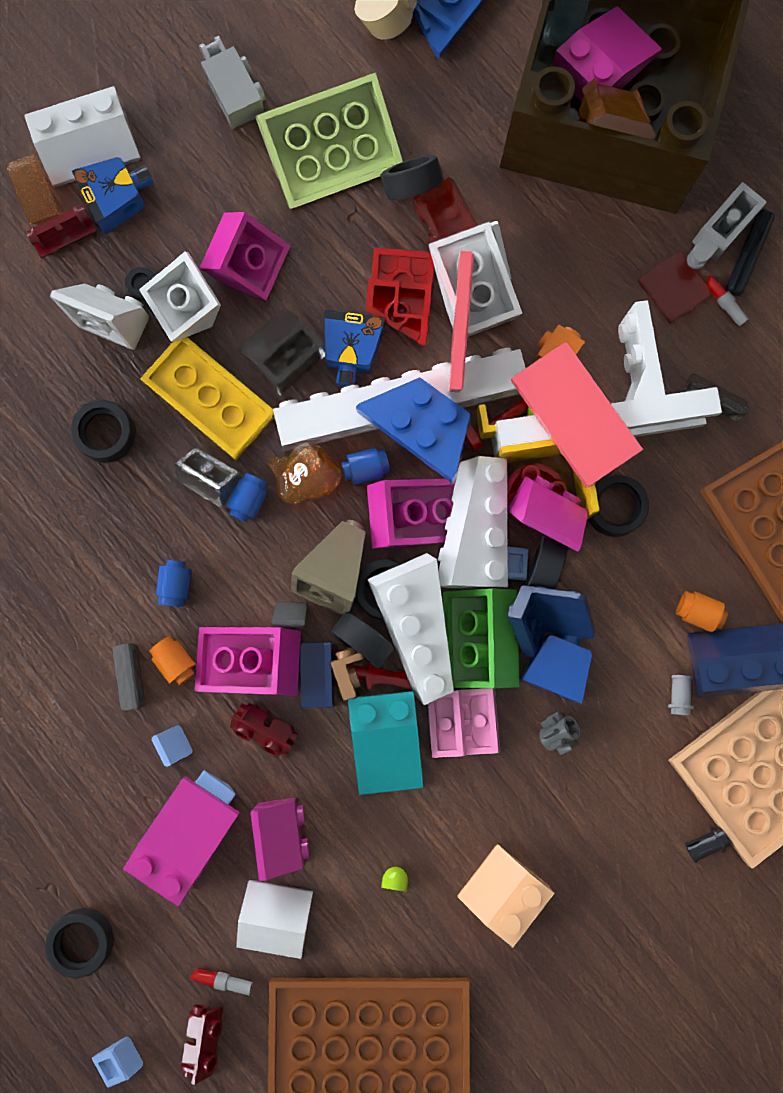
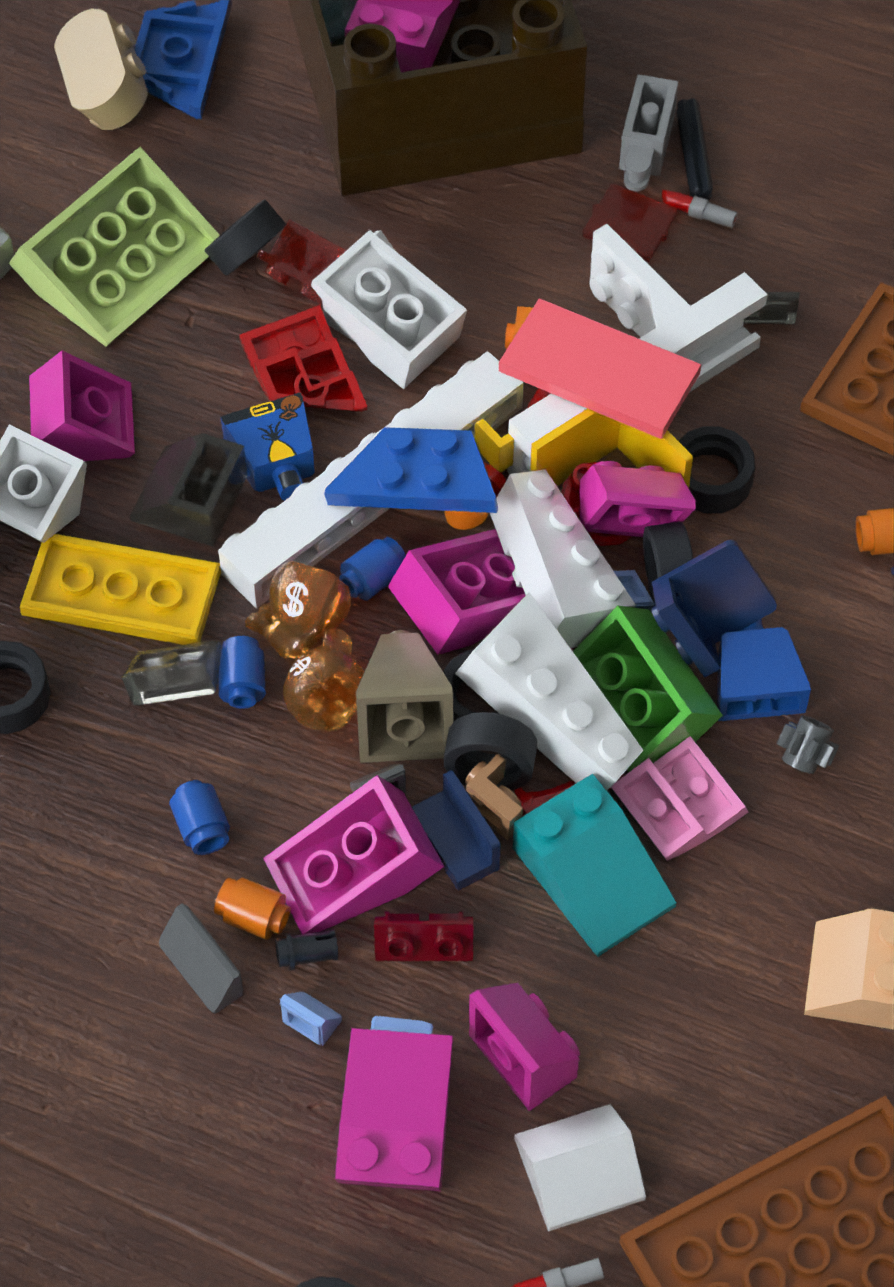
camera: 25 degrees left, 25 degrees down
(189, 702) = (306, 948): none -> black pin
(290, 534) = (324, 684): none -> clear orange piece
(395, 879) = (711, 1029): lime hinge -> none
(461, 321) = (402, 335): coral tile -> none
(615, 110) = (450, 48): reddish brown slope -> none

